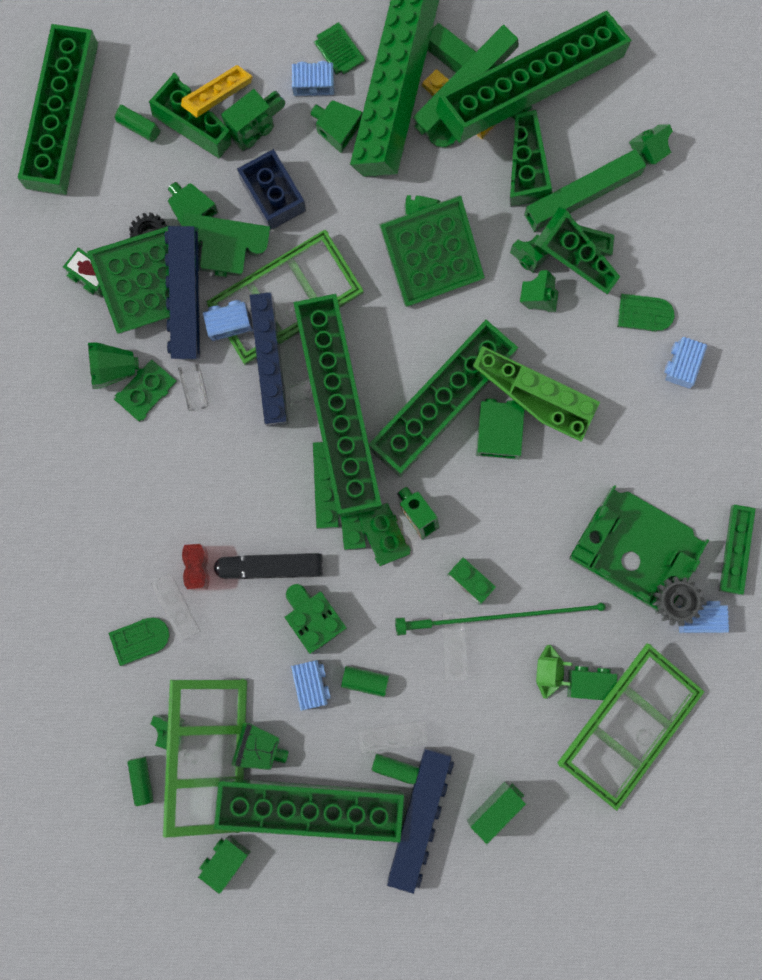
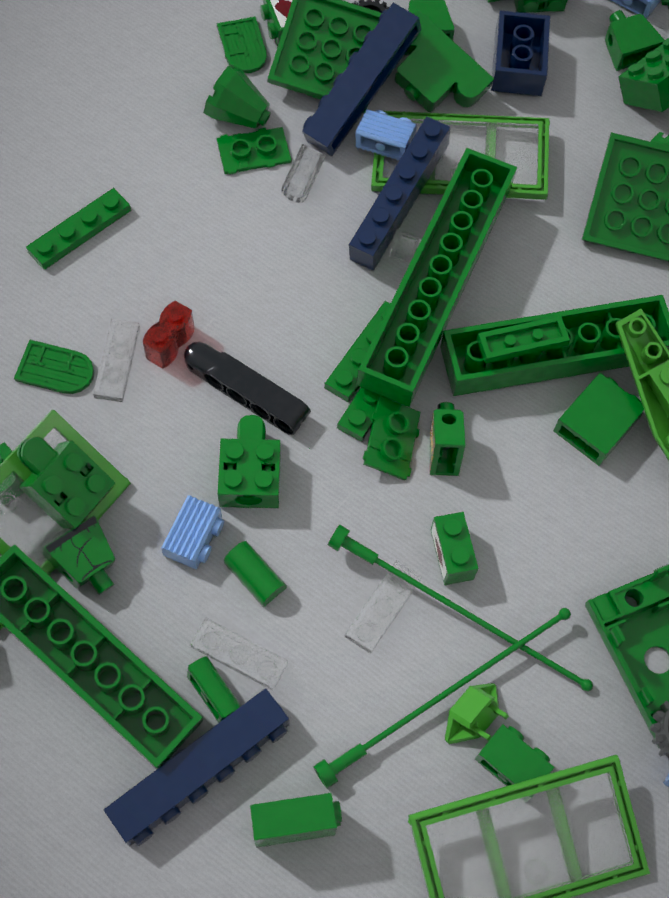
camera: 30 degrees right, 15 degrees down
(75, 312) = (243, 44): none -> green window
(76, 532) = (78, 228): none -> green plate
(211, 718) = (62, 480): none -> green brick
(423, 417) = (523, 339): none -> green plate
(493, 767) = (327, 772): none -> green piece

